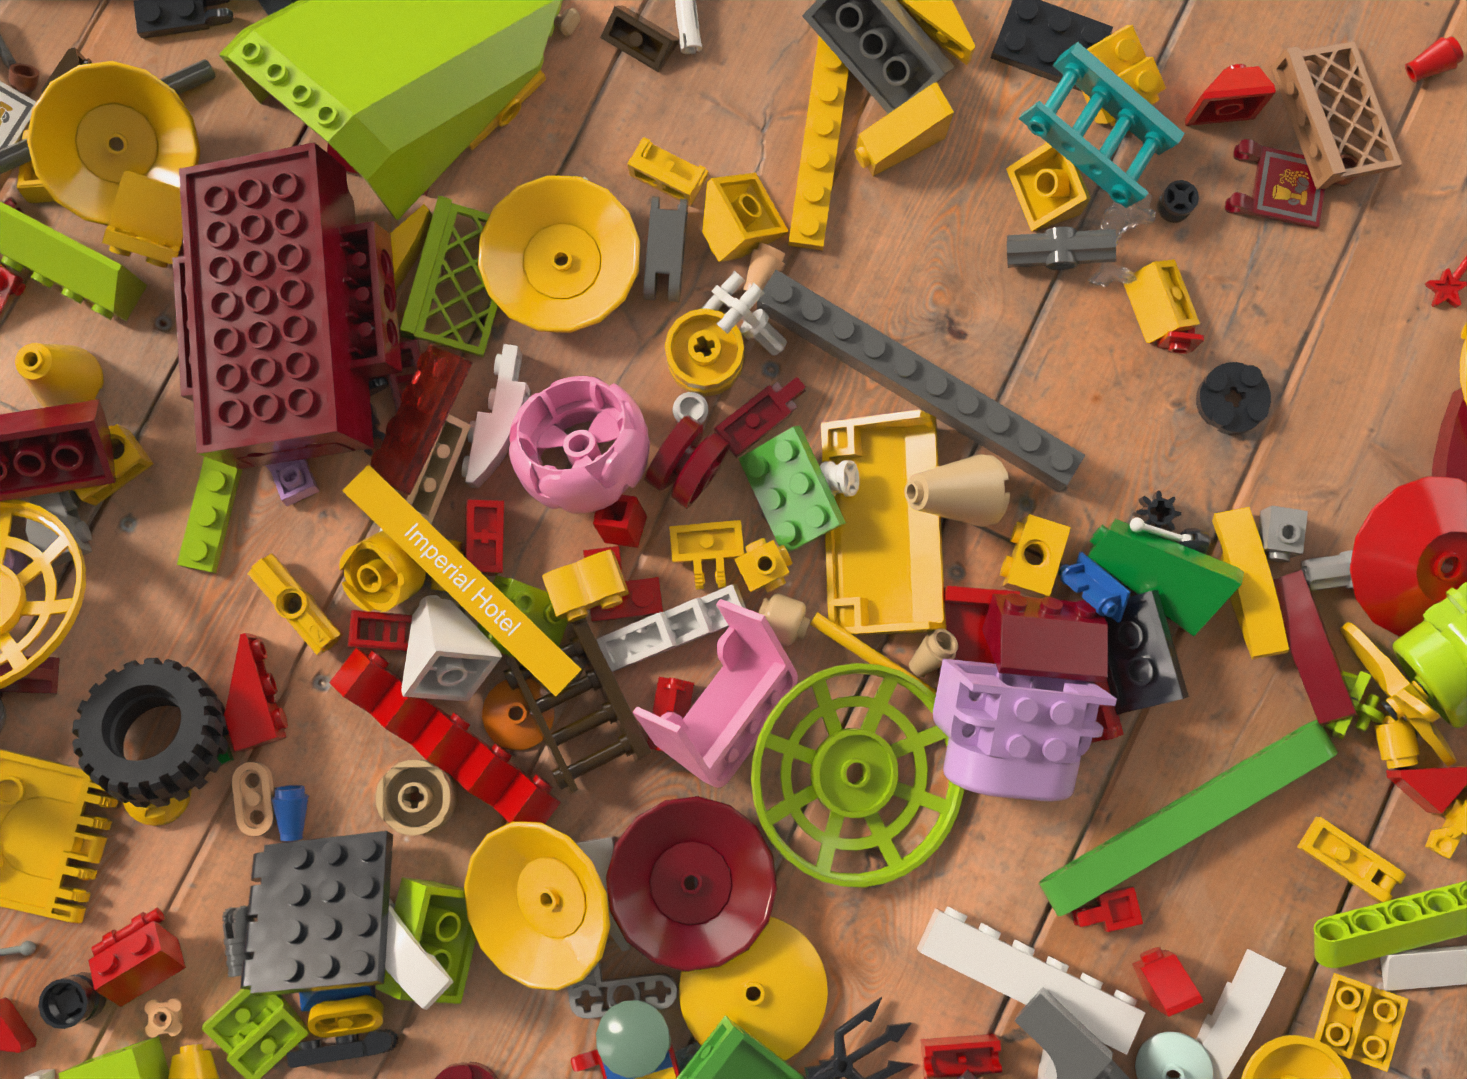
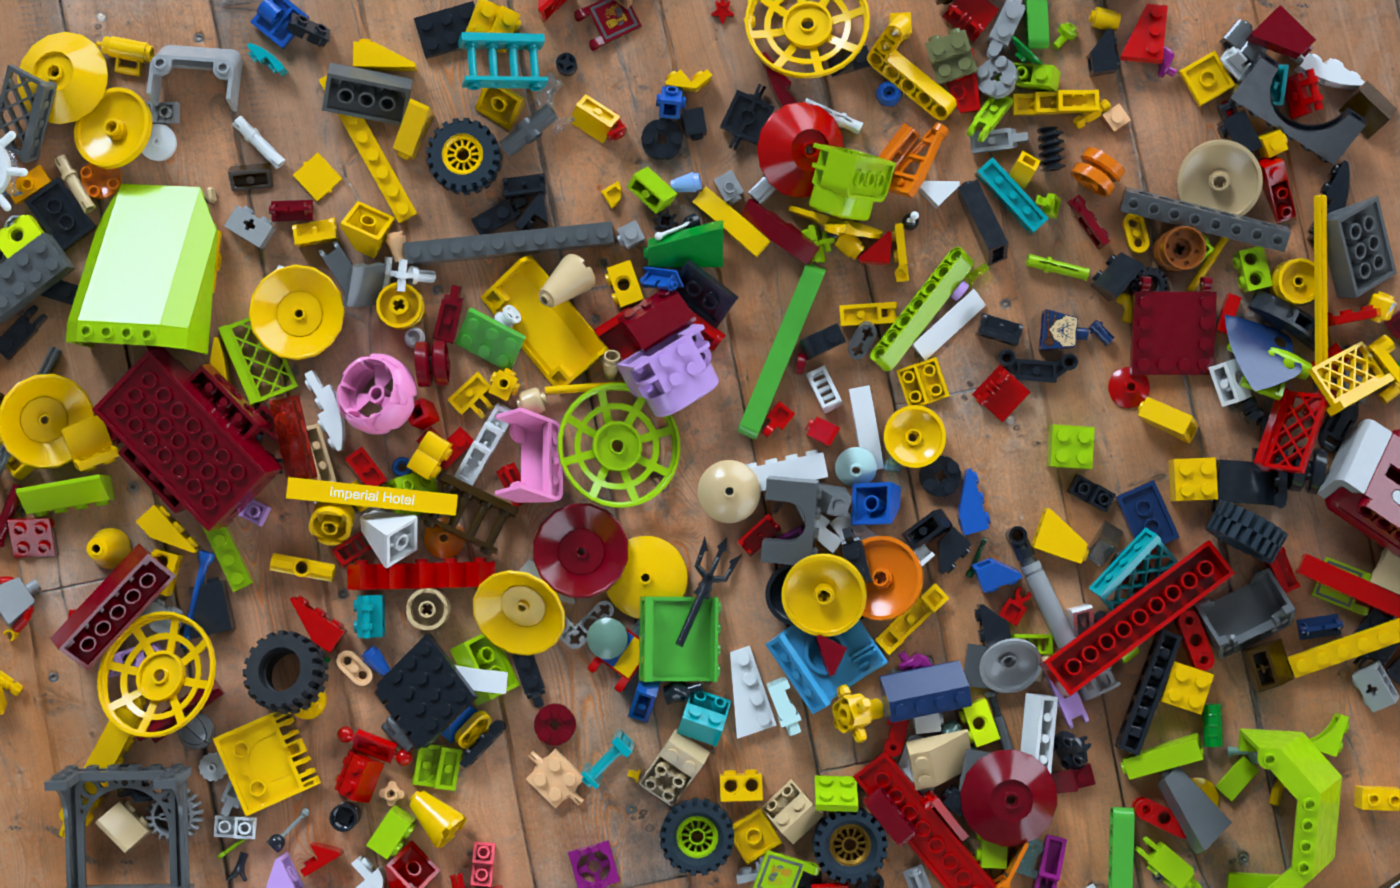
camera: 45 degrees left, 5 degrees up
(131, 567) = (213, 608): none -> black slope
(153, 402) = (160, 526): none -> yellow slope
(177, 490) = (205, 559): none -> blue piece
(192, 930) = (374, 746): none -> red plate
(331, 743) = (370, 616): none -> teal brick
(481, 1007) = (530, 677): none -> black hinge
(530, 563) = (395, 466): none -> blue plate
(582, 80) = (239, 222): none -> light grey brick
(658, 119) = (291, 210): none -> dark red hinge
(678, 283) = (364, 284): none -> dark grey slope
(727, 102) = (317, 177): none -> yellow piece
(925, 250) = (479, 174): none -> black wheel
(932, 333) = (499, 215): none -> black hinge
(946, 946) = (729, 507): none -> tan dish
(989, 362) = (536, 209): none -> black slope
(996, 320) = (524, 186): none -> black hinge
(1094, 495) = (630, 235): none -> light grey brick
(1109, 421) = (612, 194): none -> yellow tile
(1172, 455) = (651, 190): none -> lime brick
(1193, 932) = (831, 405): none -> white slope
(1201, 857) = (800, 363): none -> dark red tile
(1226, 483) = (687, 183): none -> light blue cone
(1258, 850) = (822, 341): none -> black brick
(1288, 356) = (670, 102): none -> blue brick
(1298, 409) = (694, 123): none -> black brick
(1317, 892) = (865, 343): none -> dark grey beam
(1321, 342) = (680, 80): none -> yellow slope
(1378, 456) = (746, 117): none -> black plate

